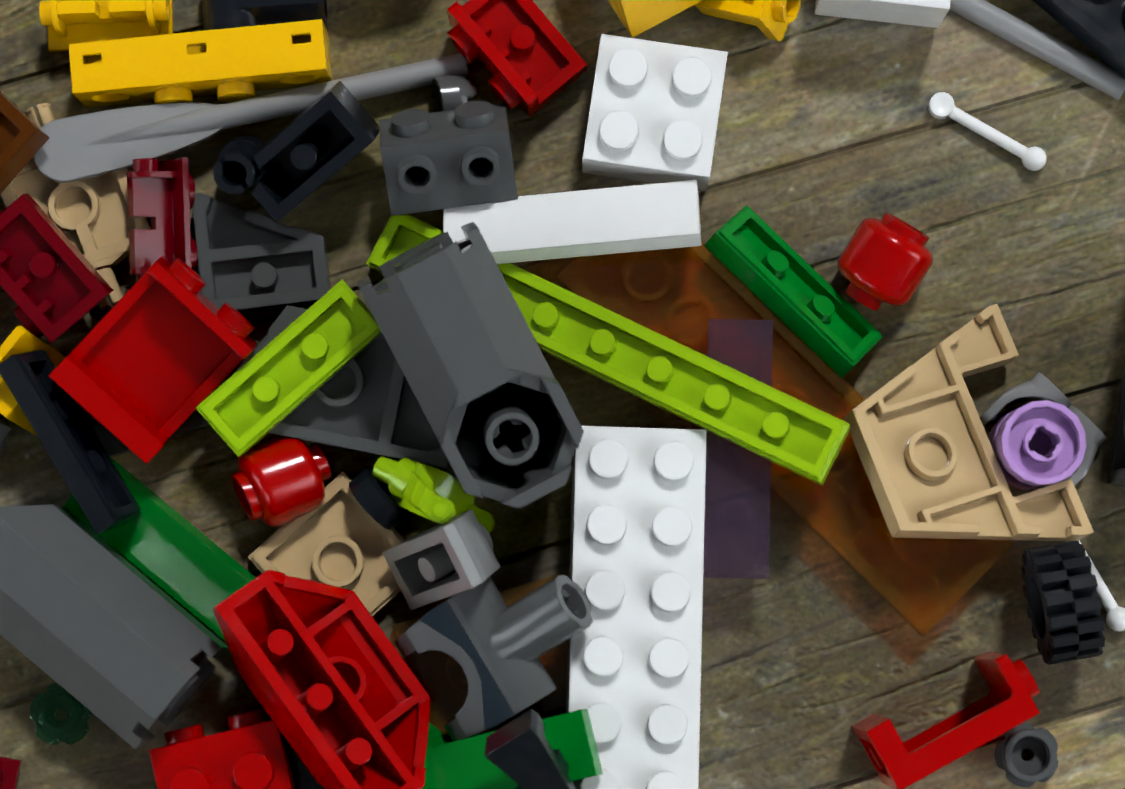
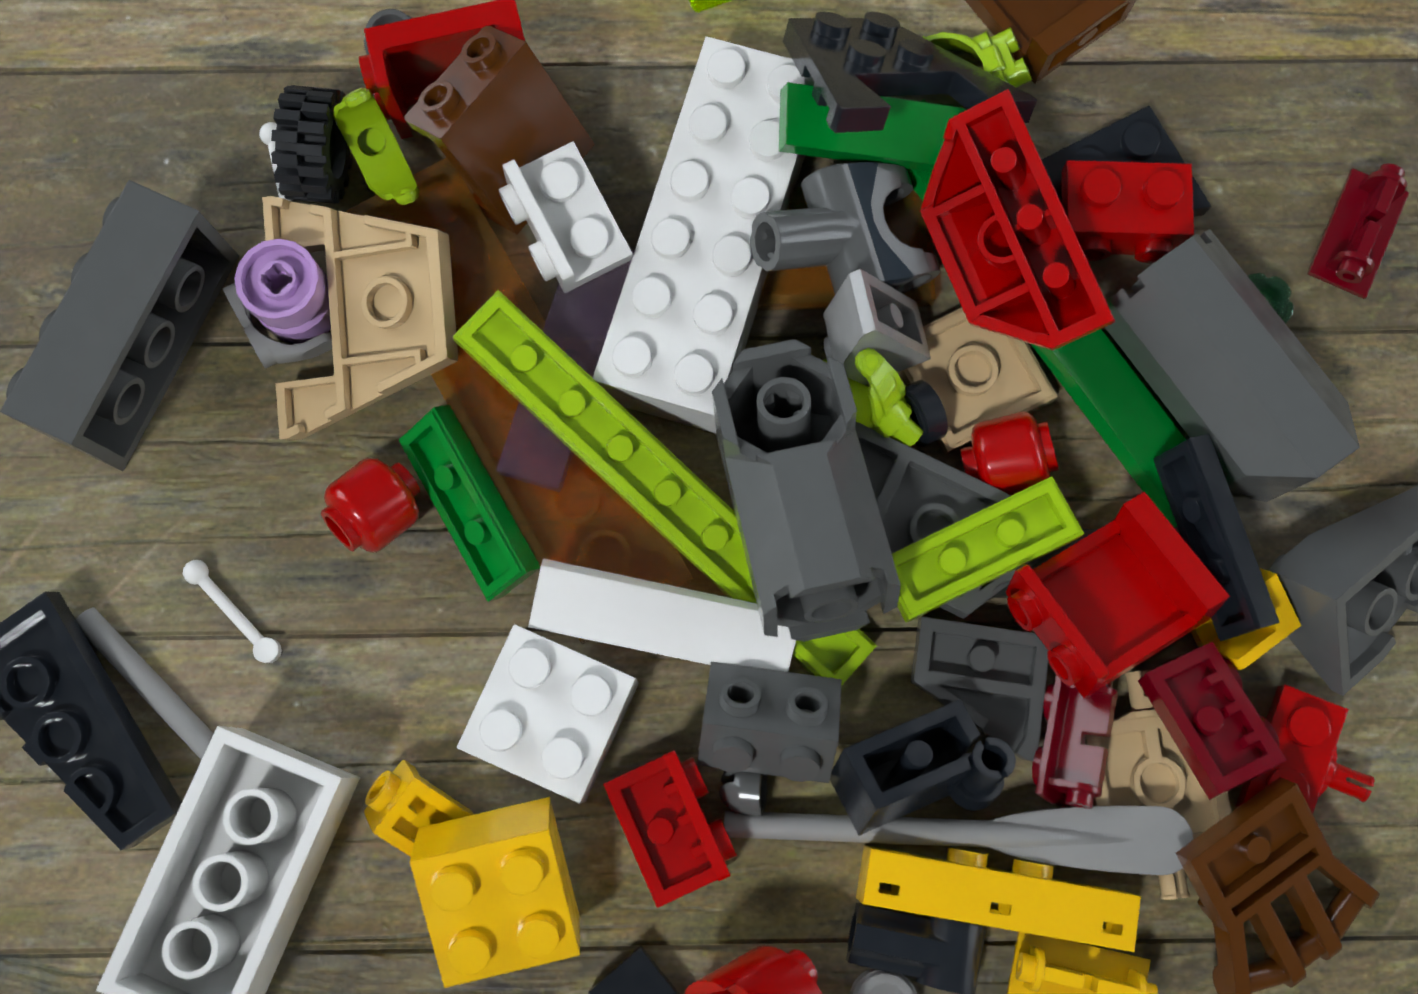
camera: 170 degrees left, 5 degrees down
(781, 582) = (567, 217): none -> white bracket
(875, 659) = (495, 109): none -> reddish brown panel
(991, 609) = (375, 147): none -> lime helmet

